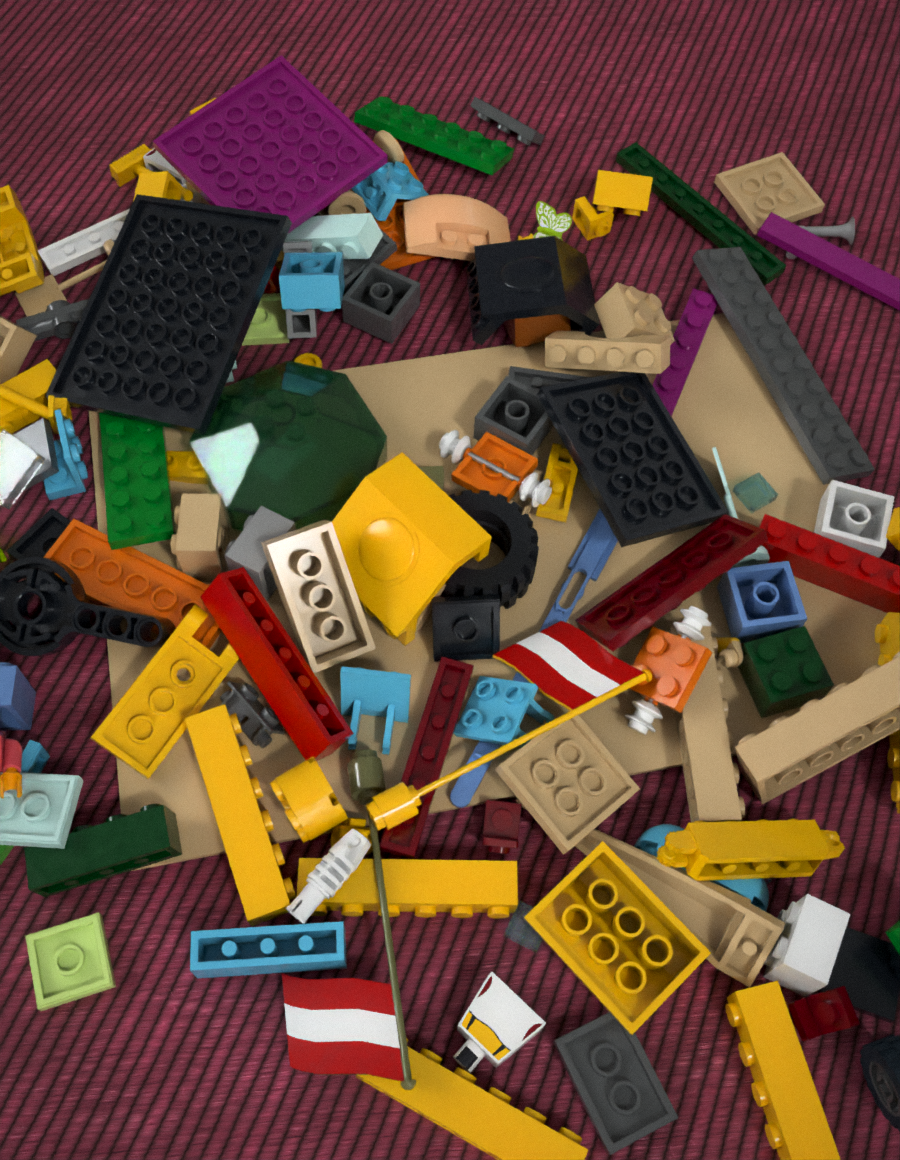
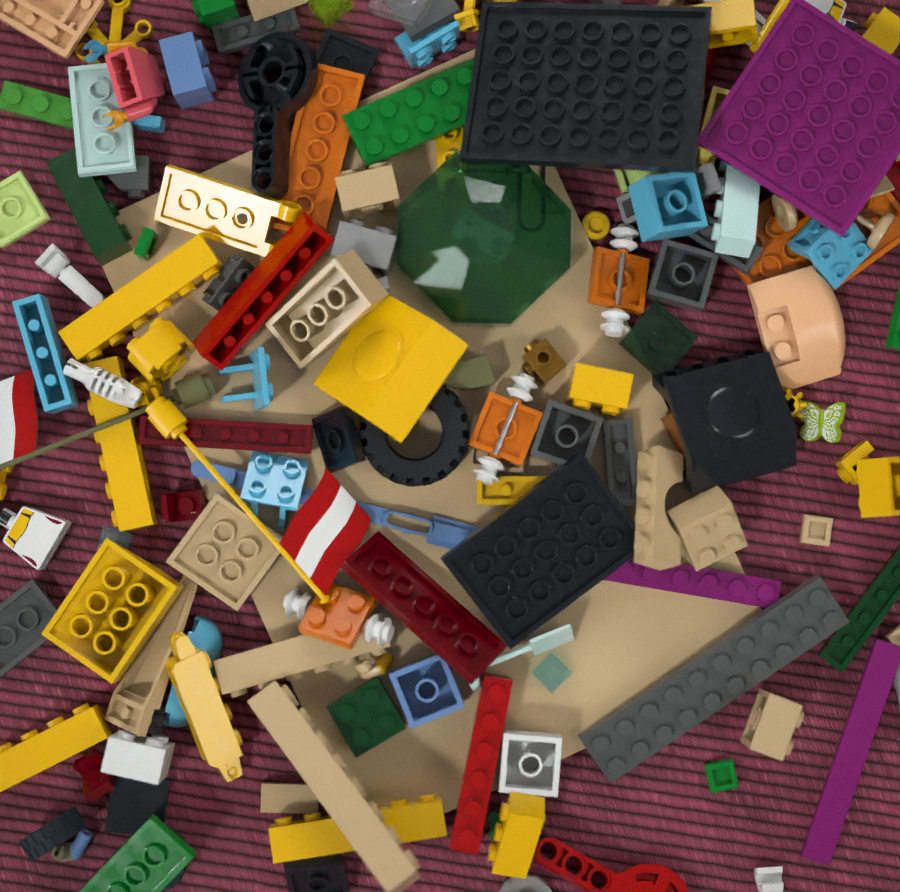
camera: 80 degrees right, 25 degrees up
(96, 796) = (136, 183): none -> dark grey slope
(160, 919) = (55, 263): none -> white piece
(174, 792) = (146, 244): none -> green tile
(369, 352) = (618, 280): none -> orange plate
(430, 425) = (542, 361): none -> pearl gold brick
(437, 338) = (658, 339): none -> clear green tile
(473, 377) = (599, 389): none -> yellow brick
(647, 263) = (816, 530): none -> tan tile
(831, 320) = (772, 725): none -> tan brick
(866, 788) = (288, 798): none -> tan tile
(873, 381) = (721, 775): none -> green tile

